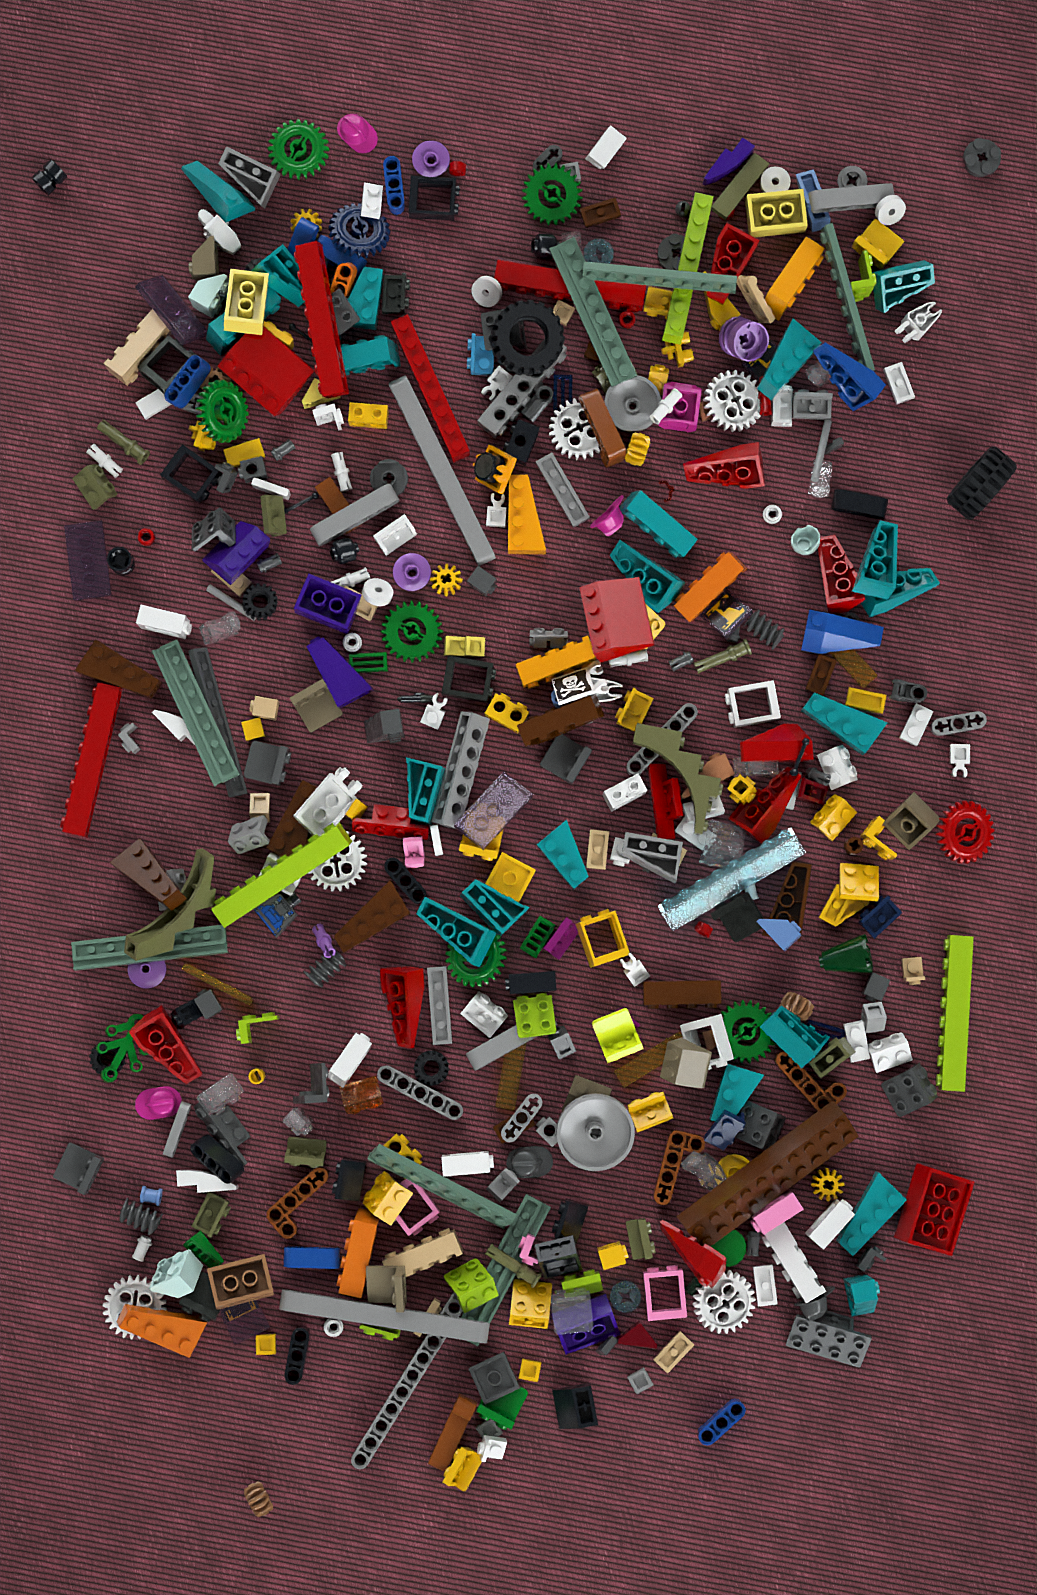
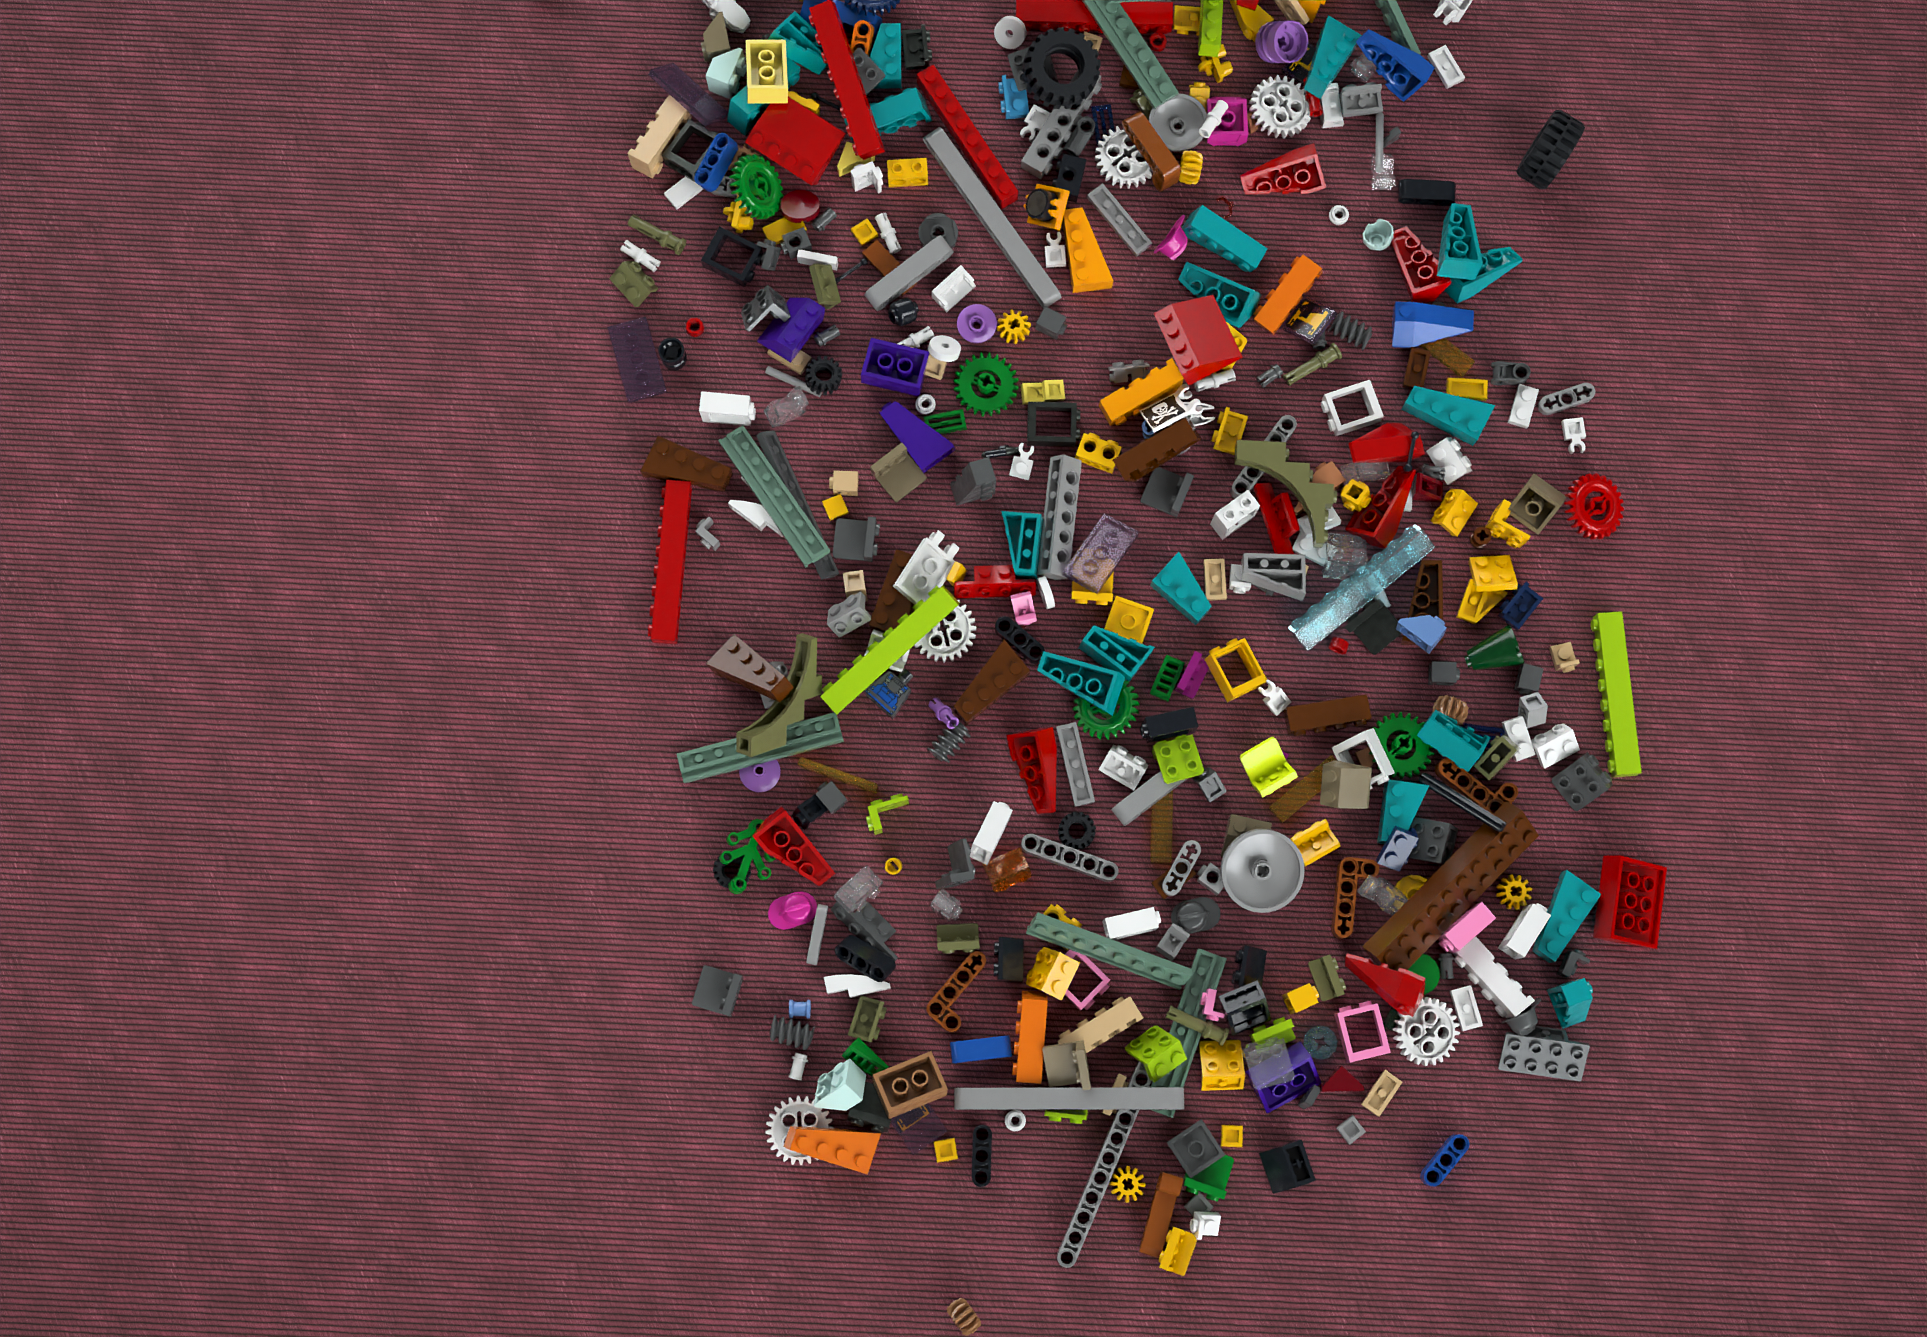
camera: 10 degrees left, 5 degrees down
(262, 434) = (800, 206): none -> dark red tile
(319, 467) = (864, 232): none -> yellow tile
(419, 1400) = (1134, 1181): none -> yellow gear
(791, 1095) = (1462, 802): none -> black axle
(796, 970) = (1443, 673): none -> dark grey brick

